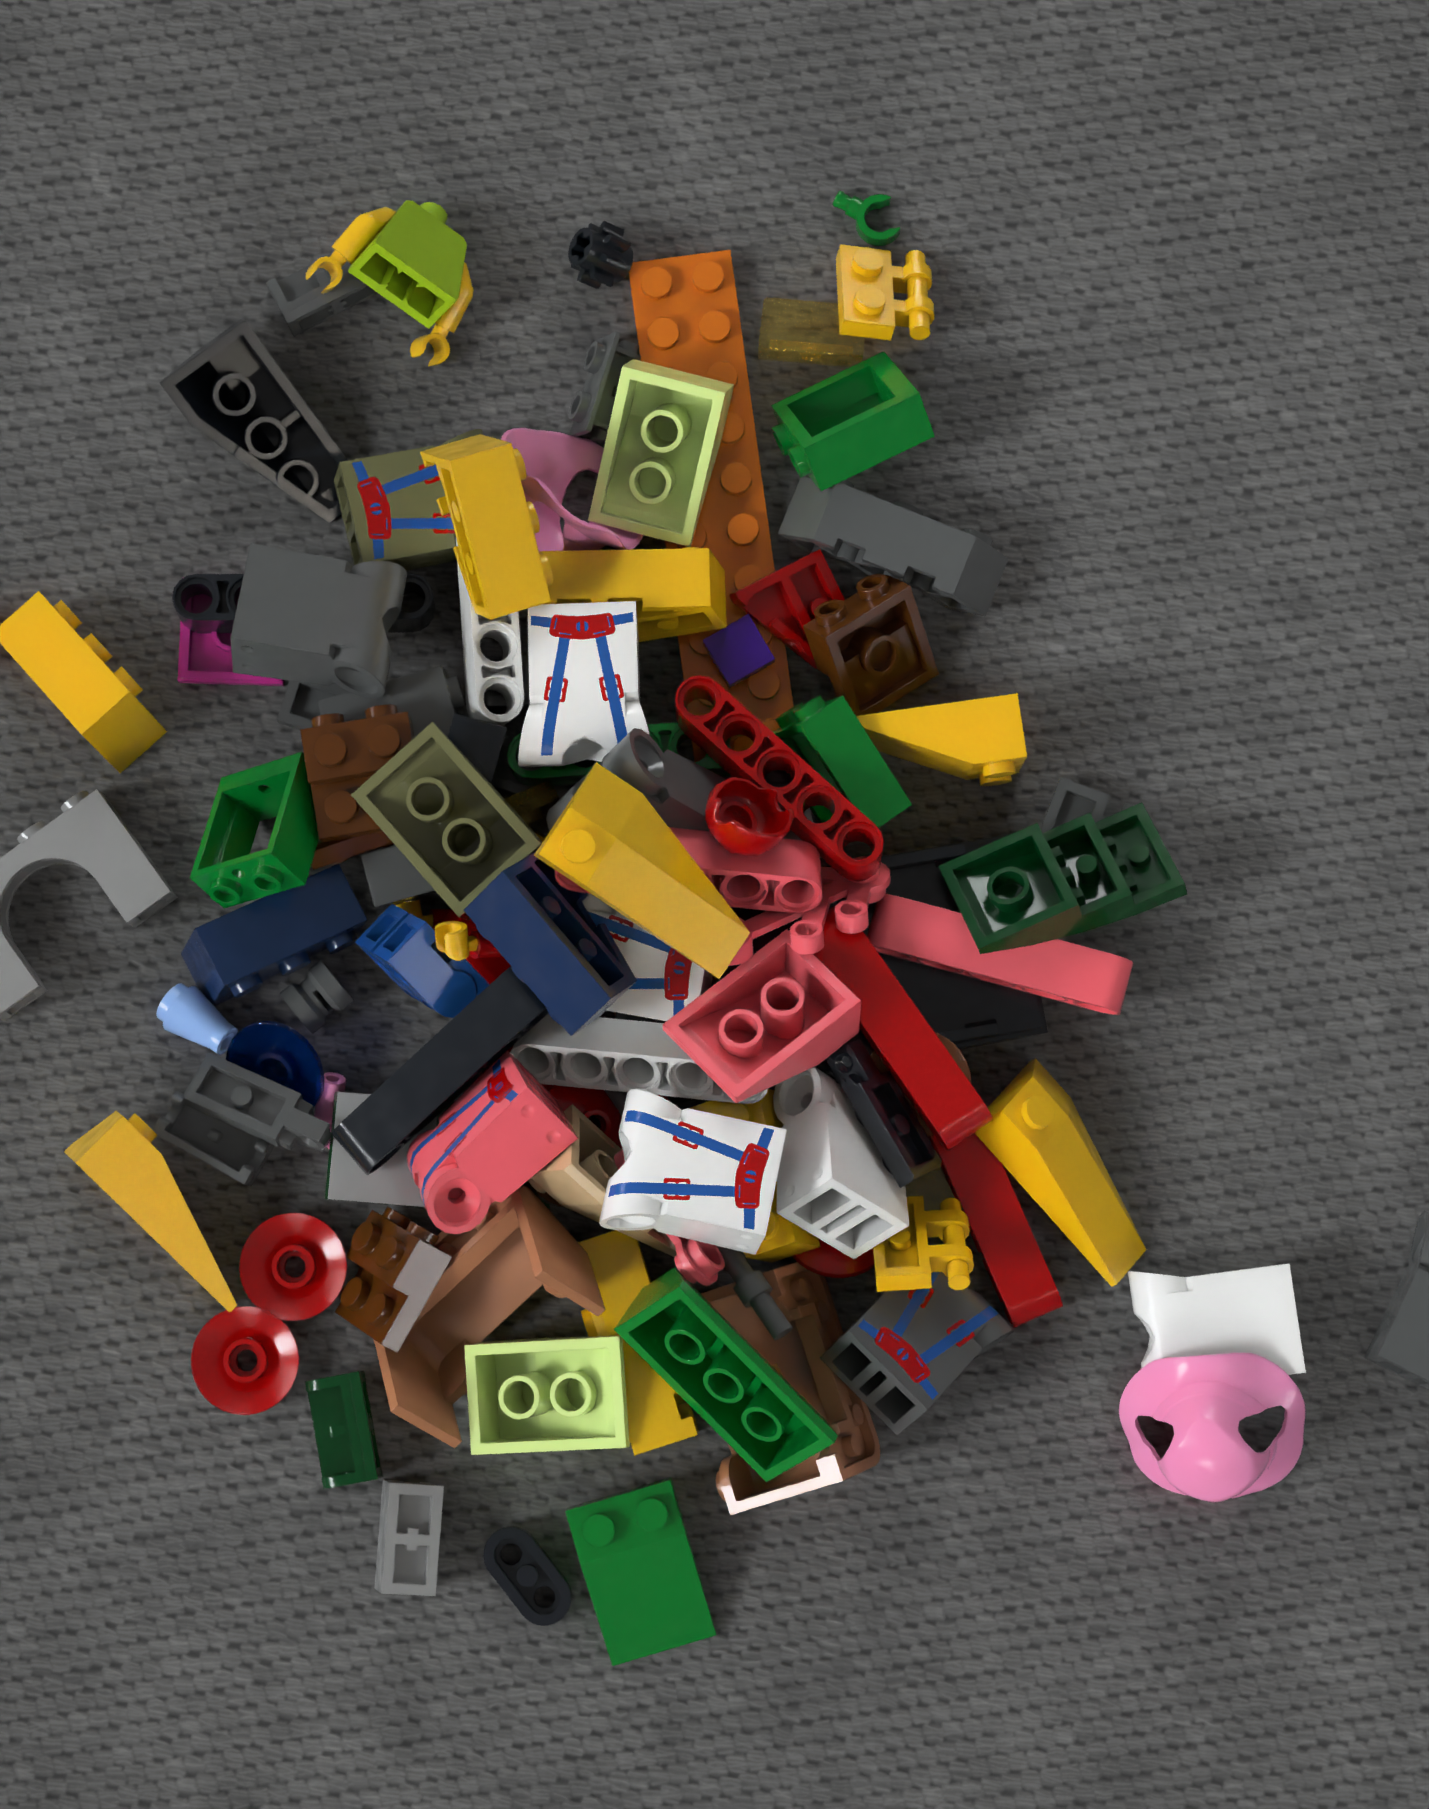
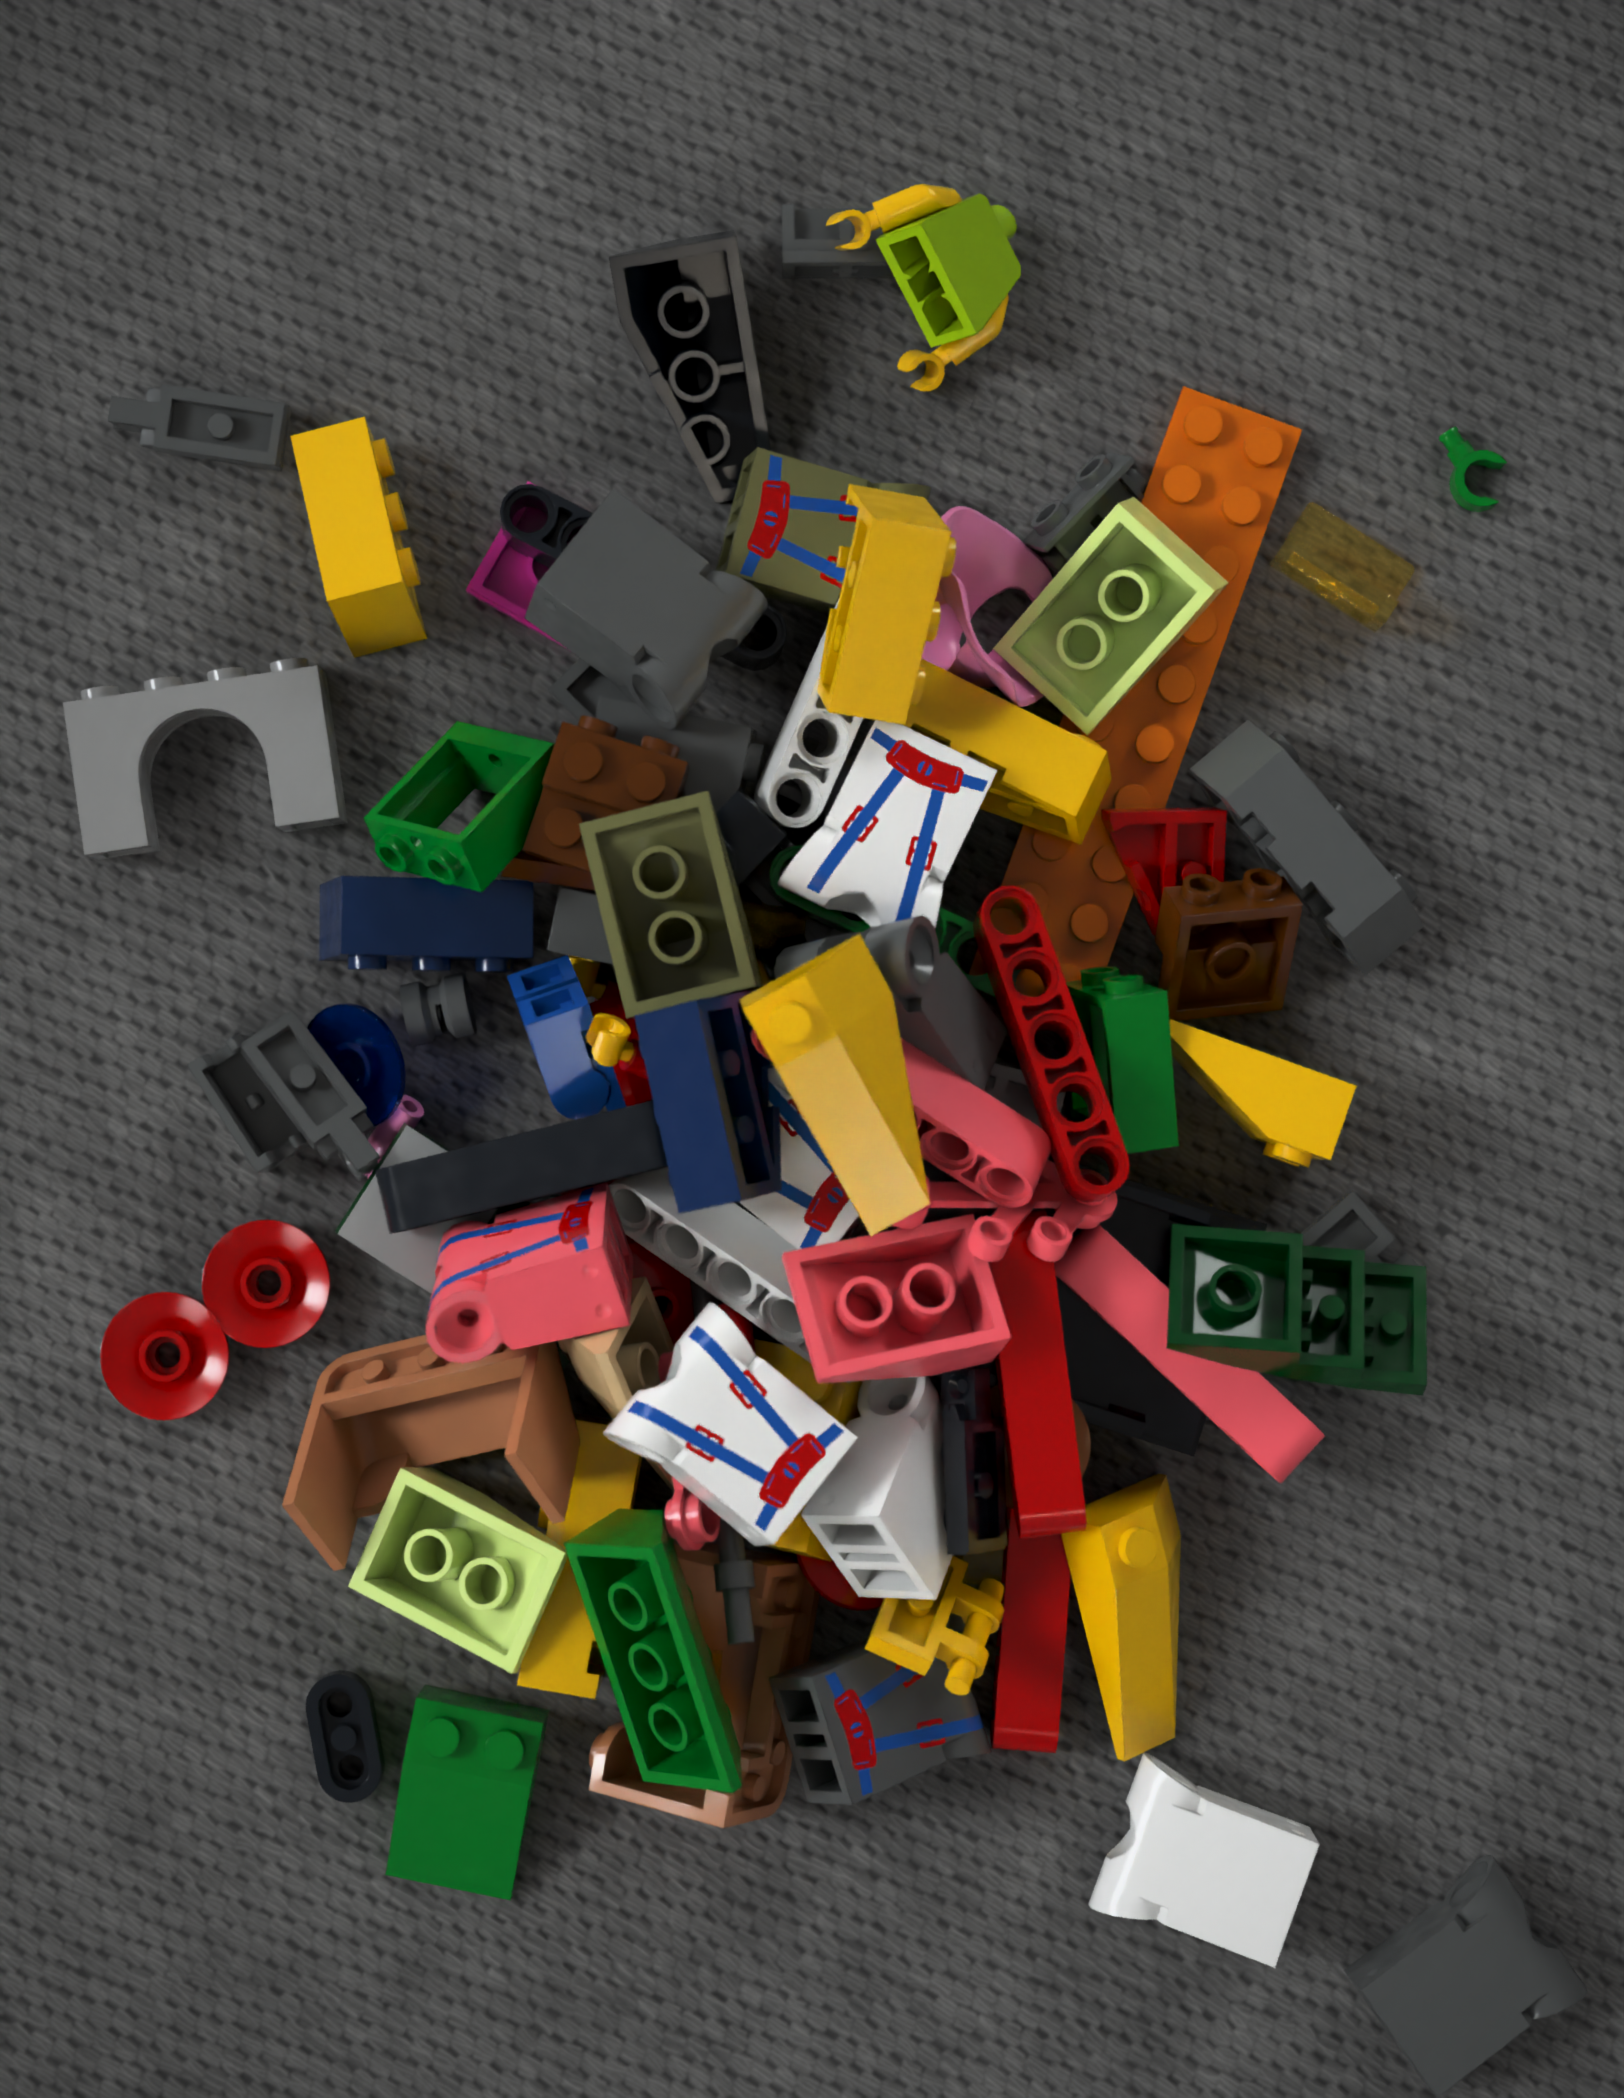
camera: 25 degrees right, 5 degrees up
(135, 1175) = (142, 1103): yellow wedge -> none
(193, 1017) = (297, 964): light blue cone -> none
(344, 1429) = (232, 1483): dark green hinge -> none
(393, 1278) = (363, 1355): reddish brown plate -> none
(409, 1538) = (240, 1633): light grey hinge -> none
(600, 255) = (1159, 362): black gear -> none
(738, 651) = (1080, 875): dark purple tile -> none
(746, 817) = (992, 1075): red hair -> none
(851, 421) = (1326, 718): green window -> none
(867, 295) = (1424, 557): yellow plate -> none
(1204, 1405) = (1149, 1952): bright pink piece -> none

